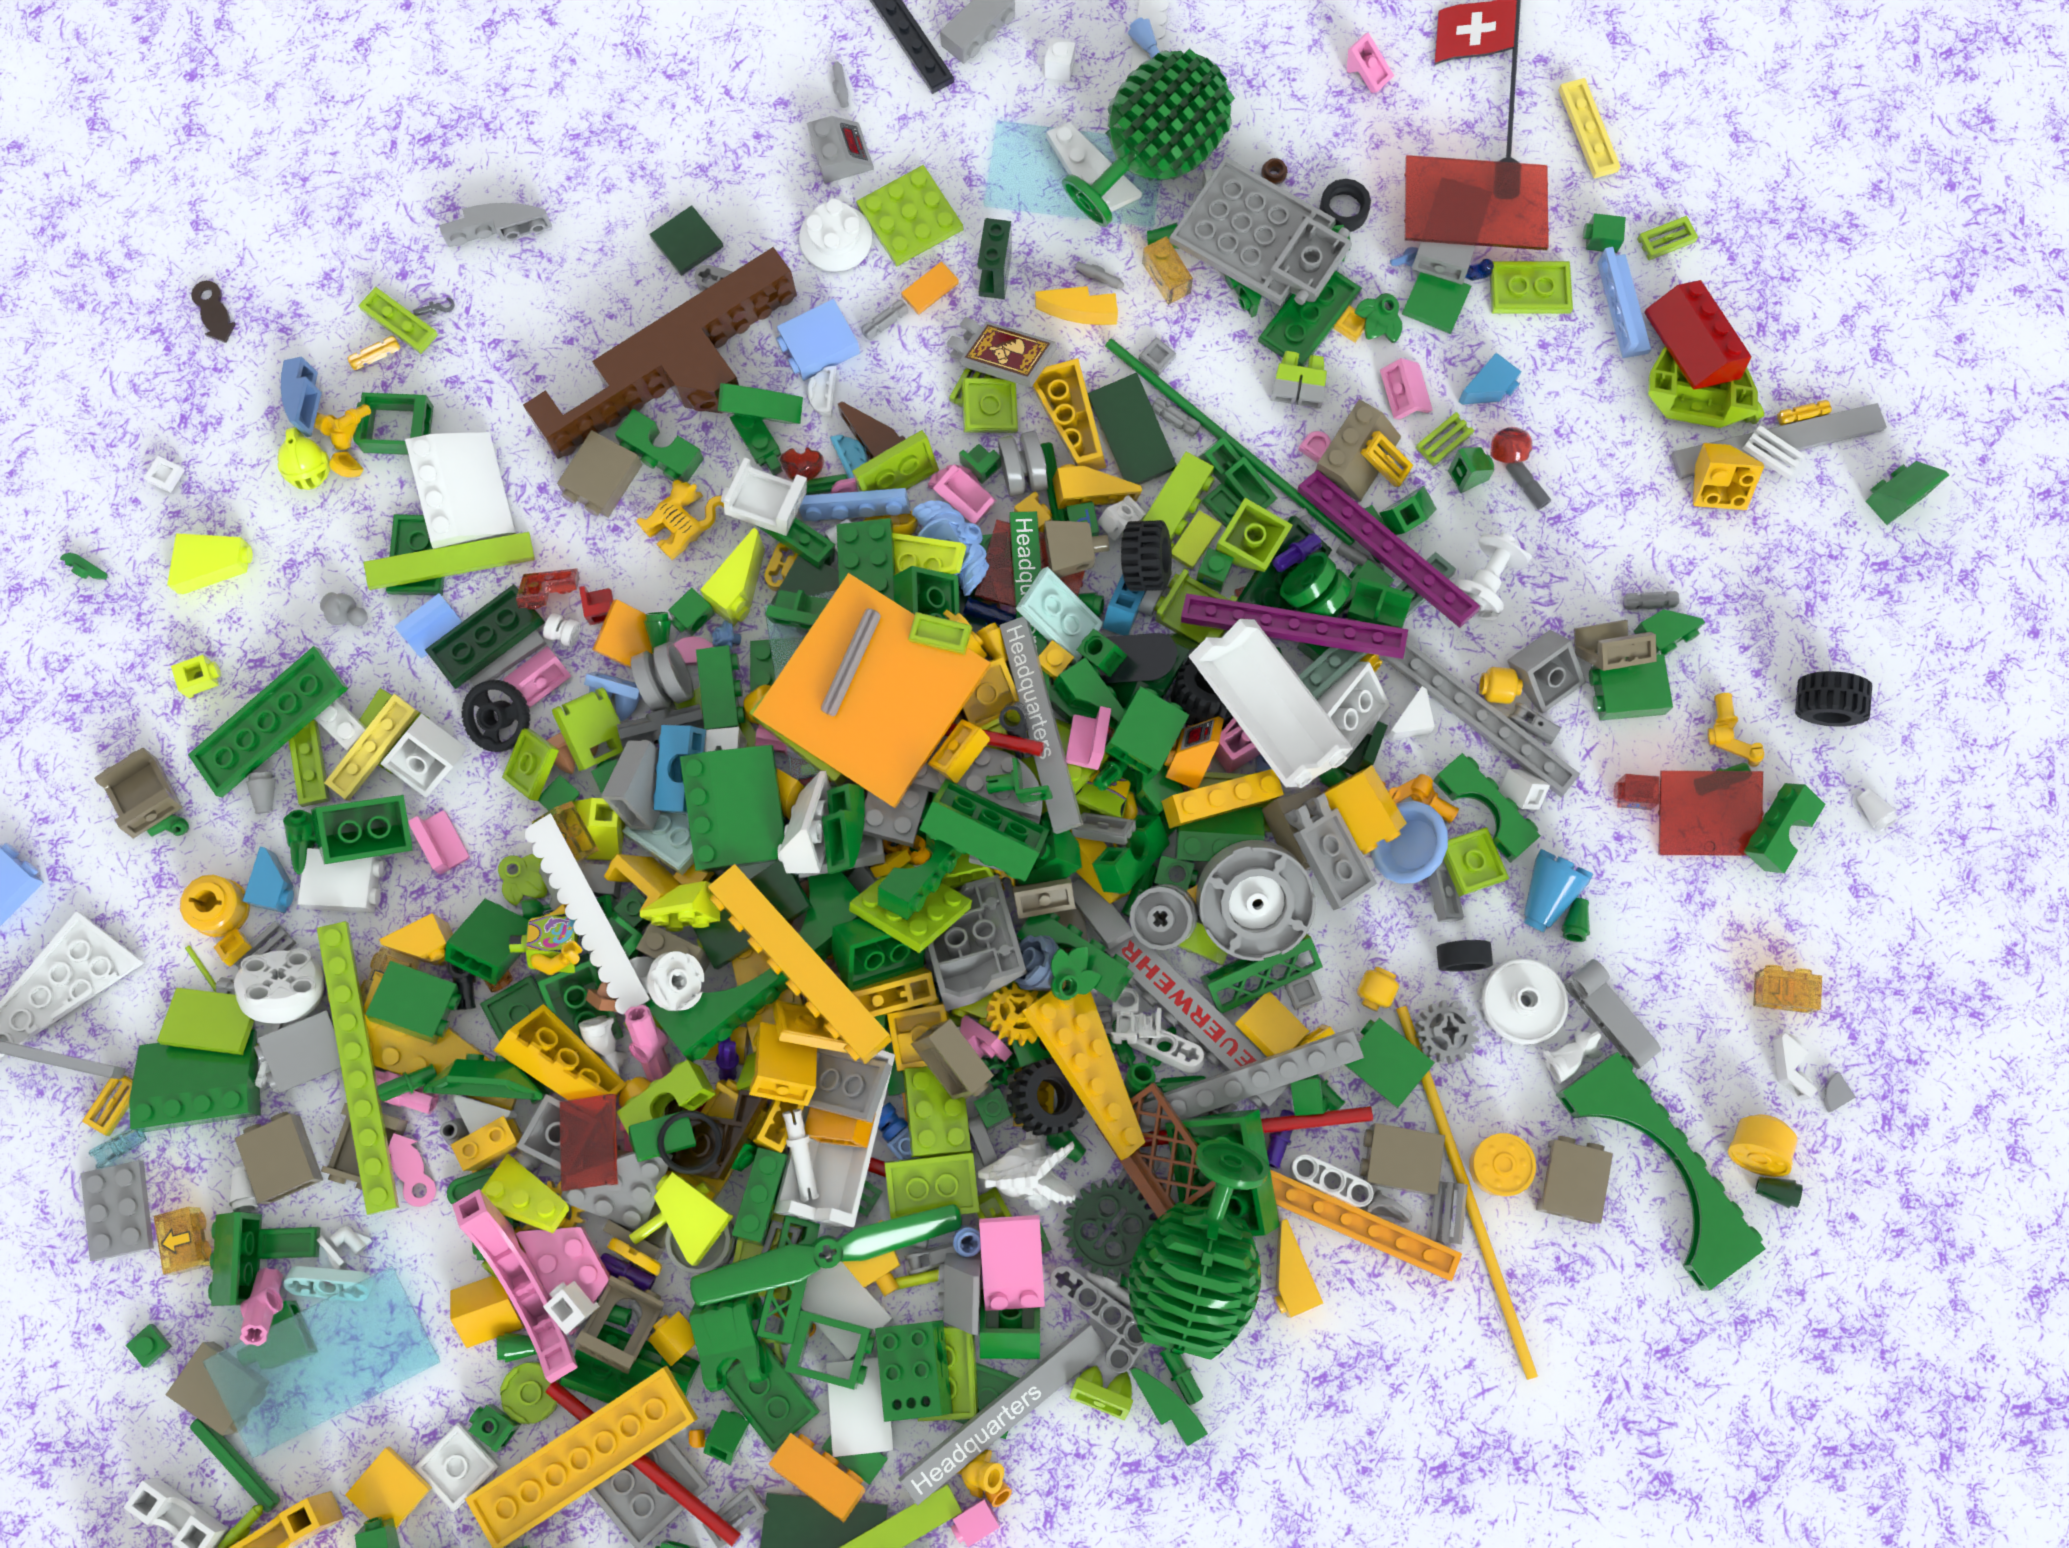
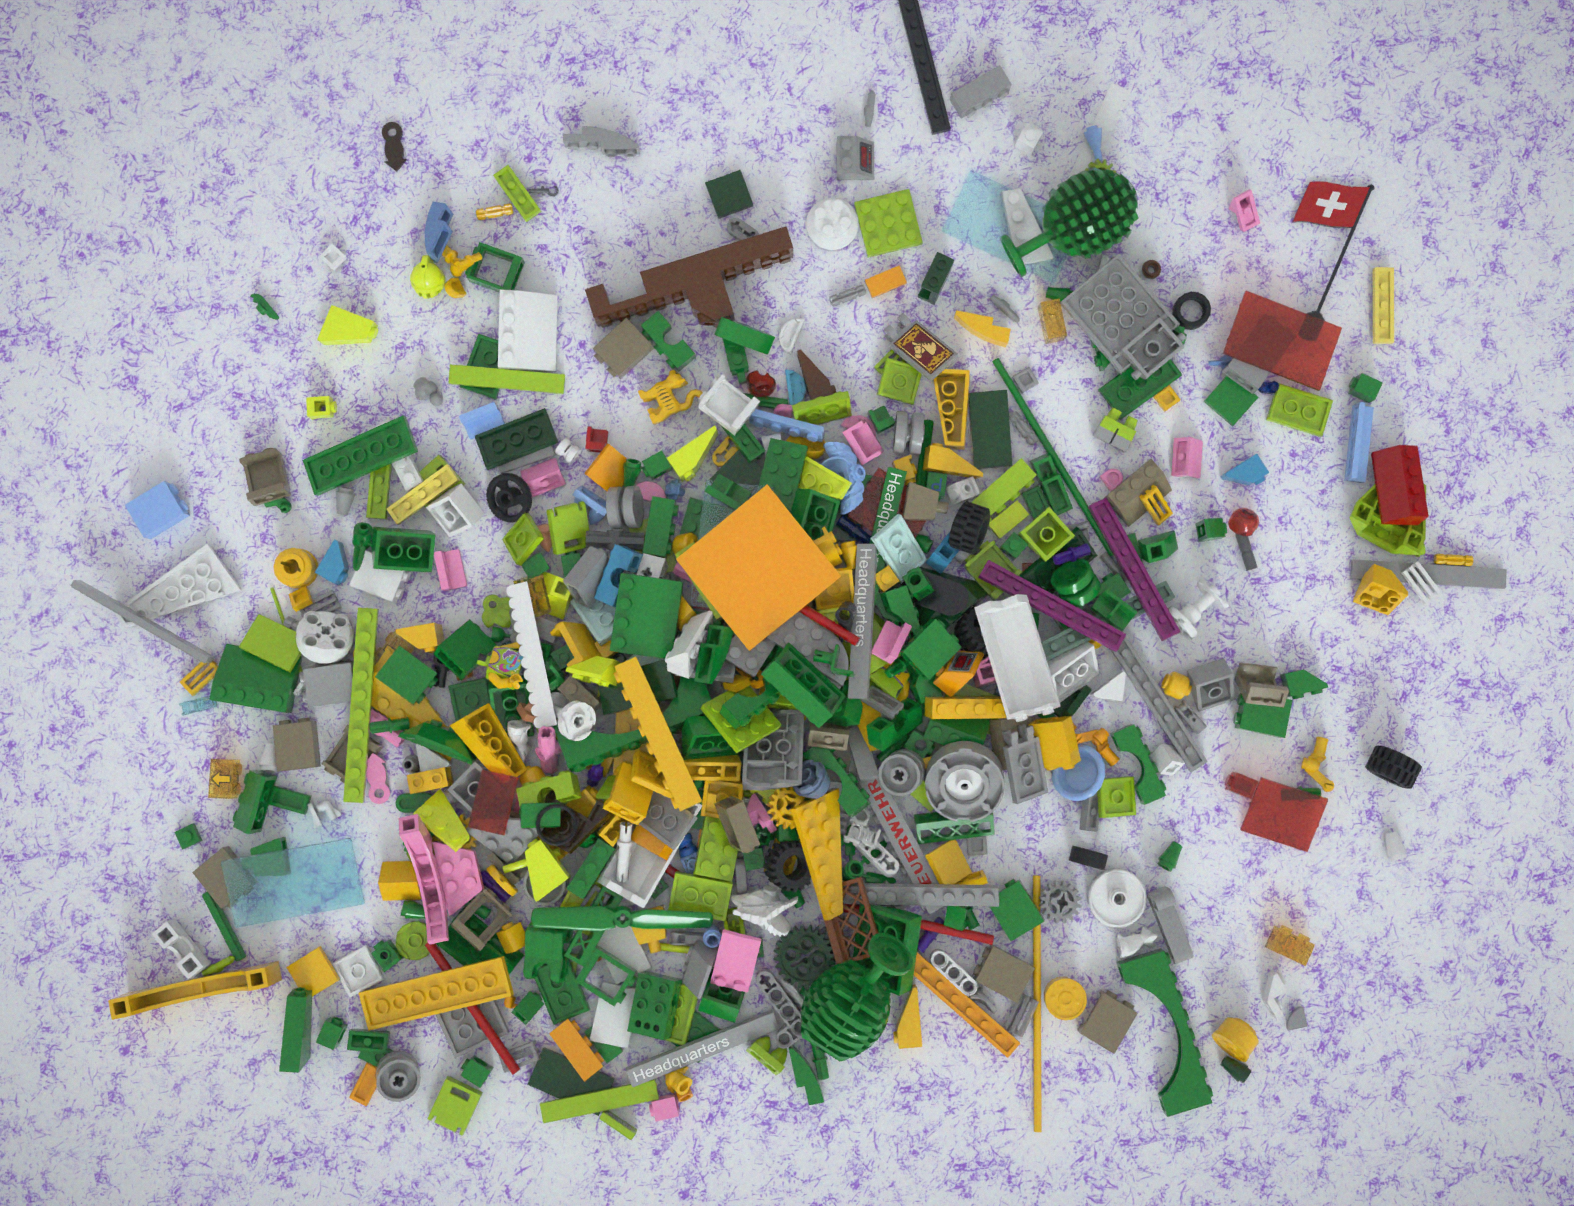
camera: 20 degrees right, 10 degrees up
(116, 1210) = (188, 745): light grey plate -> none
(261, 1306) = (264, 838): bright pink piece -> none
(309, 1281) = (305, 832): light aqua beam -> none
(536, 586) = (562, 414): clear red plate -> none
(569, 1306) = (453, 900): white brick -> none
(817, 340) = (797, 297): light blue brick -> none
(850, 662) = (750, 546): light grey axle -> none
(940, 633) = (814, 546): lime tile -> none
(959, 750) = (803, 626): yellow slope -> none
(1073, 970) = (831, 794): green plate -> none
(1377, 988) = (1025, 860): yellow head -> none
(1379, 319) = (1186, 402): green plate -> none
(1460, 425) = (1215, 495): lime tile -> none
(1552, 889) = (1161, 832): dark azure cone -> none
(1651, 600) = (1300, 658): light grey axle -> none
(1654, 253) = (1392, 405): lime tile -> none
(1771, 843) = (1315, 847): green arch -> none
(1904, 489) = (1499, 637): green slope -> none

